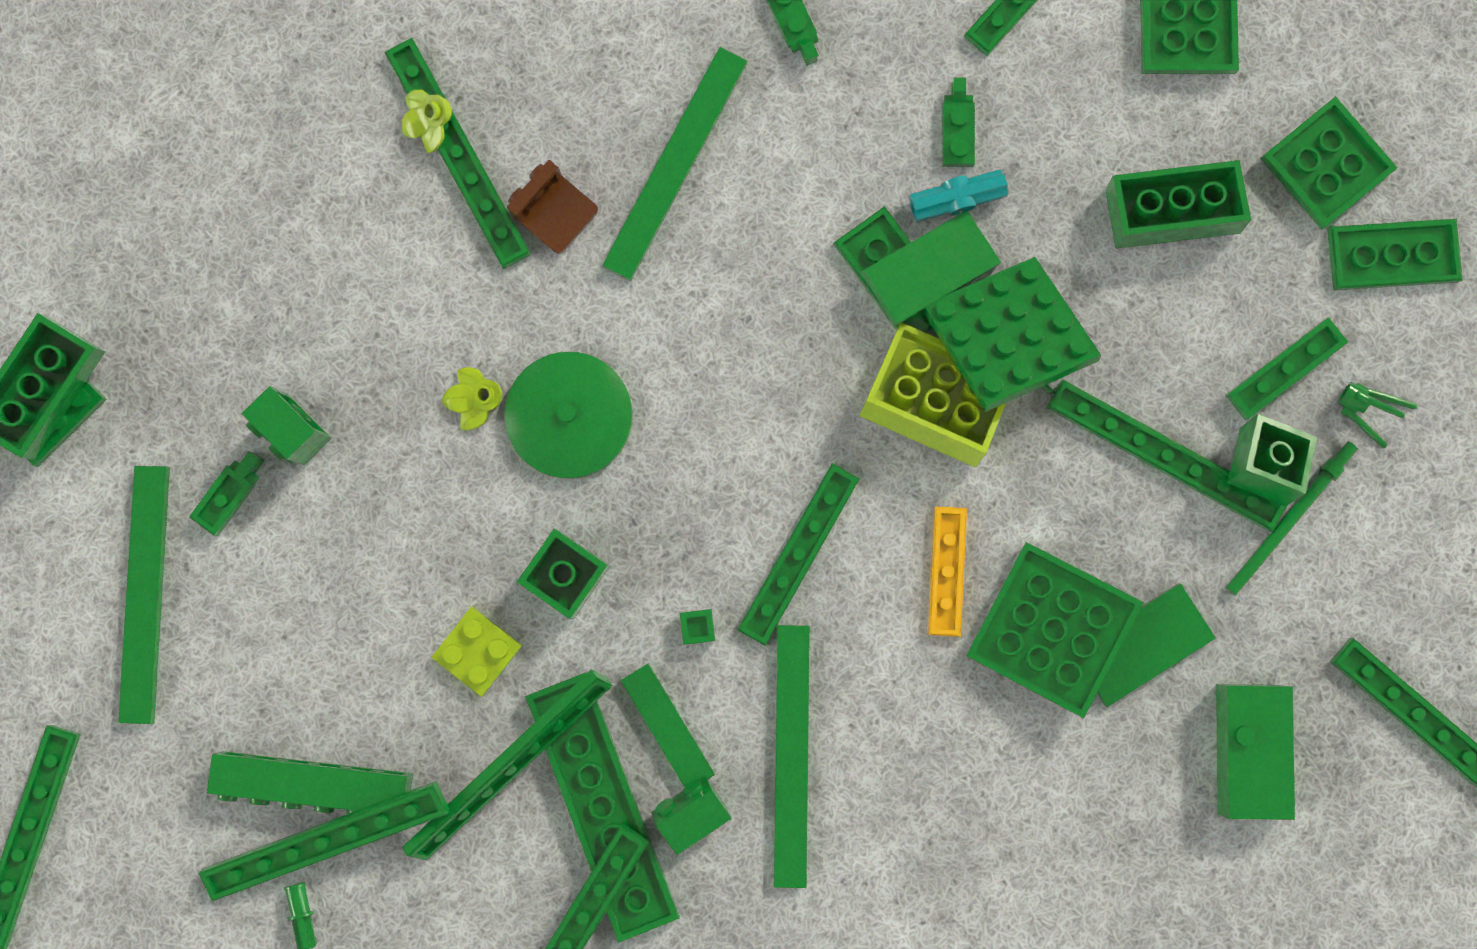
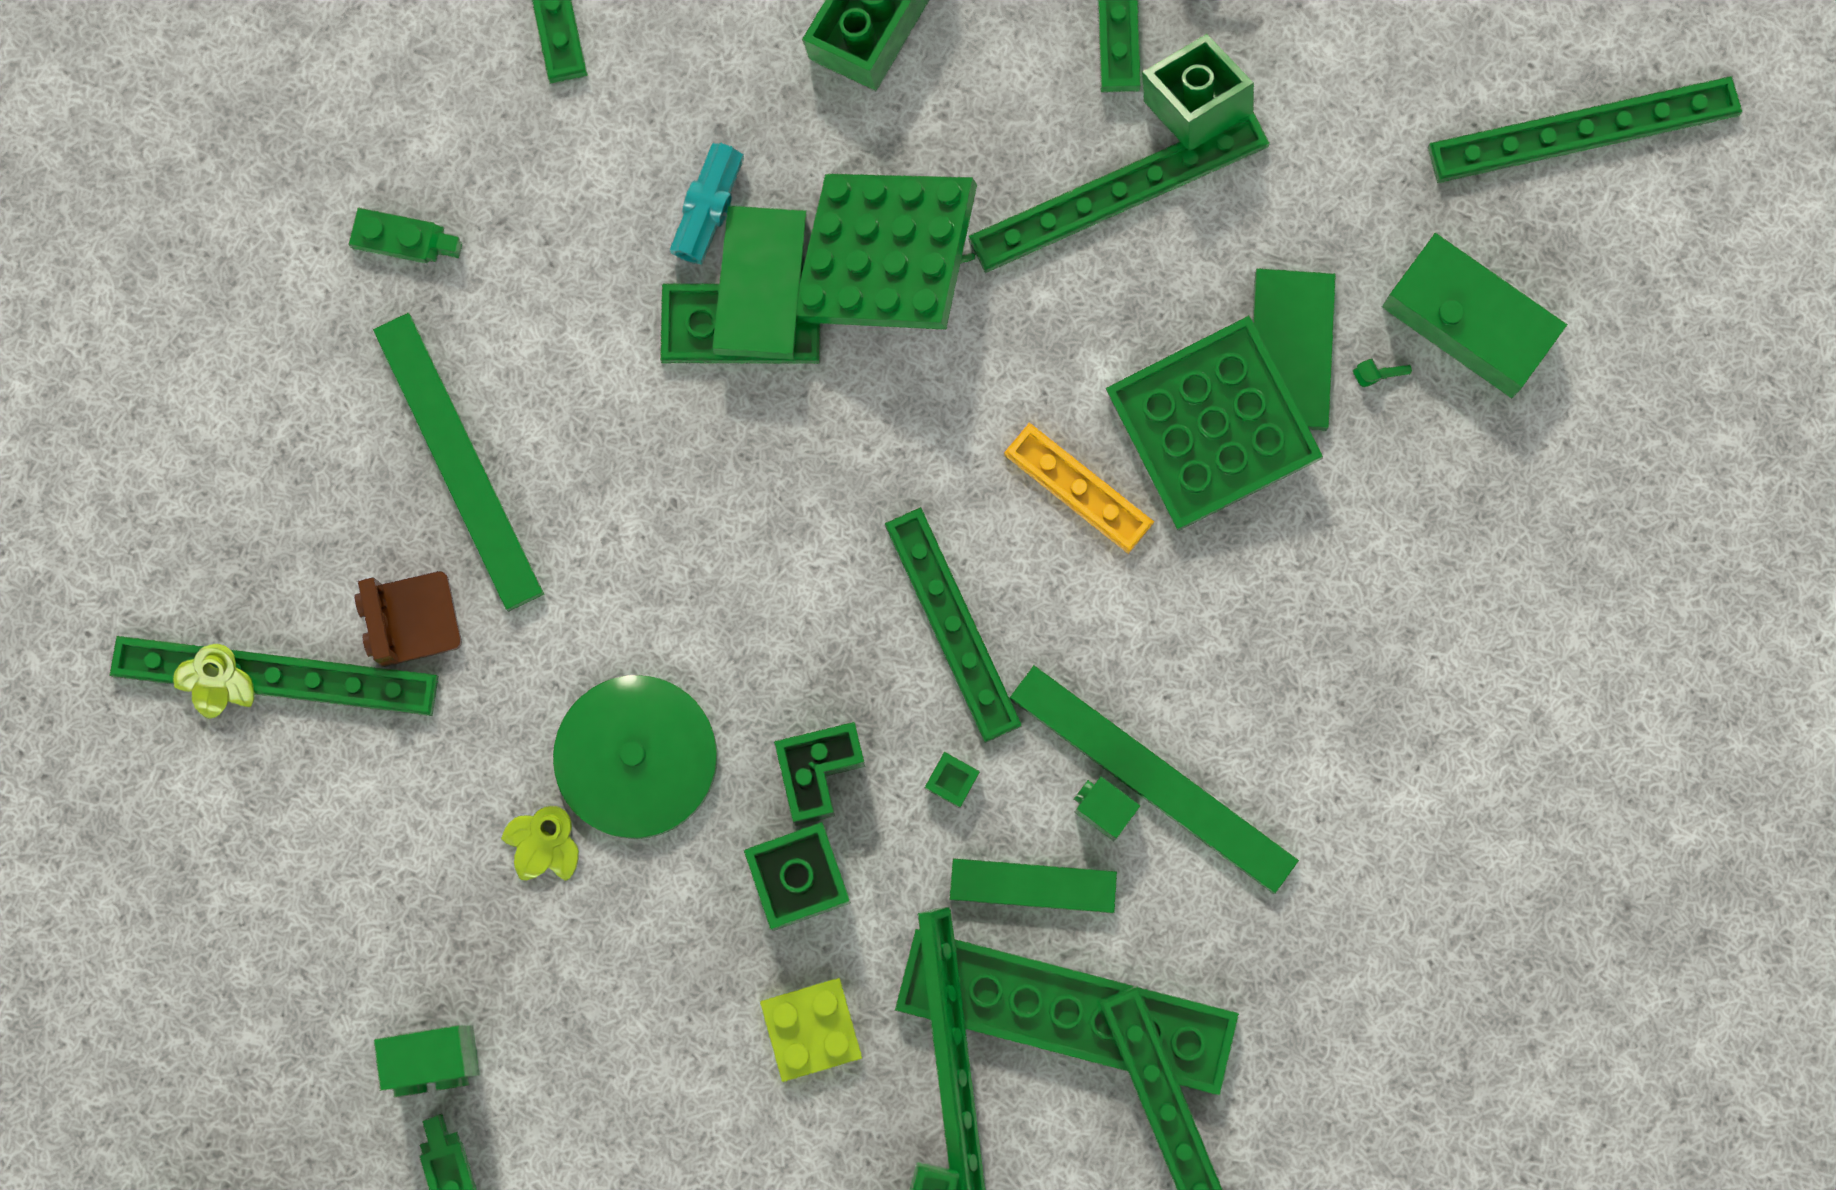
camera: 55 degrees left, 5 degrees down
(636, 528) = (806, 763): none -> green brick
(690, 815) = (1140, 923): green brick -> none
(750, 738) = (1105, 807): none -> green brick
(928, 399) = (892, 378): lime slope -> none
(958, 126) = (637, 154): green hinge -> none
(1163, 706) = (1368, 373): none -> green hand
(1329, 471) = (1250, 47): green bar -> none

